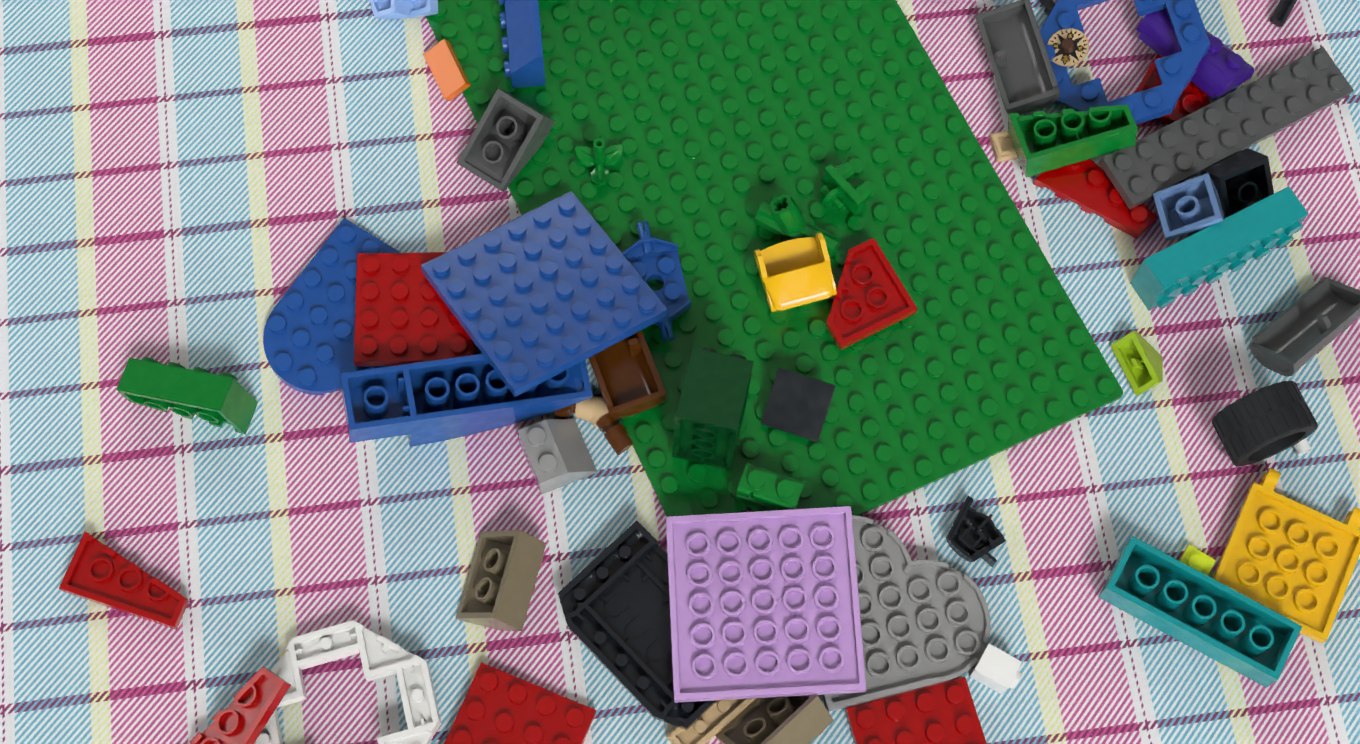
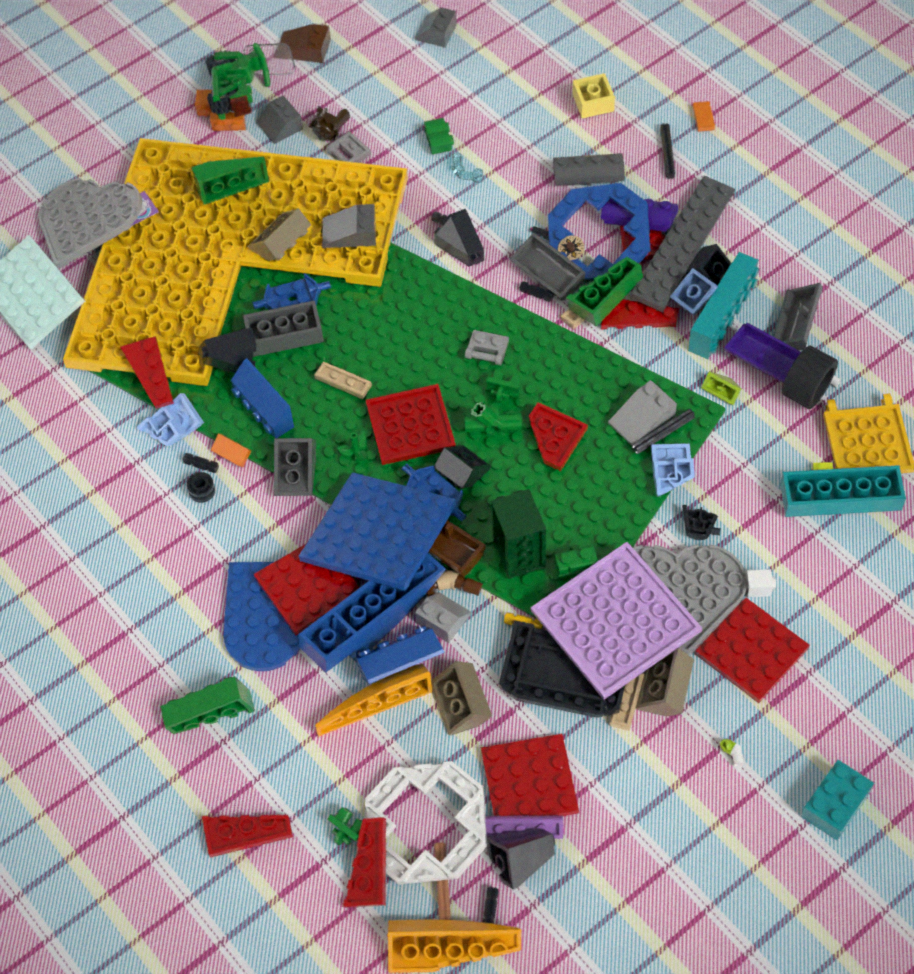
camera: 25 degrees left, 10 degrees down
(240, 659) = (341, 821): none -> green hips
(376, 86) = (201, 494): none -> black wheel
(400, 64) = (200, 462): none -> black axle
(400, 513) = (378, 697): none -> light orange wedge
(459, 474) = (399, 654): none -> blue slope
(639, 512) = (510, 618): none -> yellow axle
(647, 58) = (343, 380): none -> tan tile
(690, 169) = (410, 424): none -> red plate
(715, 266) = (461, 466): none -> black slope
(795, 272) = (509, 442): yellow piece -> none
(798, 404) = (559, 510): black piece -> none
(867, 117) = (487, 343): none -> light grey plate
(982, 81) = (536, 291): none -> black axle
(990, 434) = (671, 466): none -> light blue slope
(1002, 338) = (643, 413): none -> light grey slope
(1013, 377) = (663, 431): none -> black axle
(1227, 346) = (762, 351): none -> dark purple container

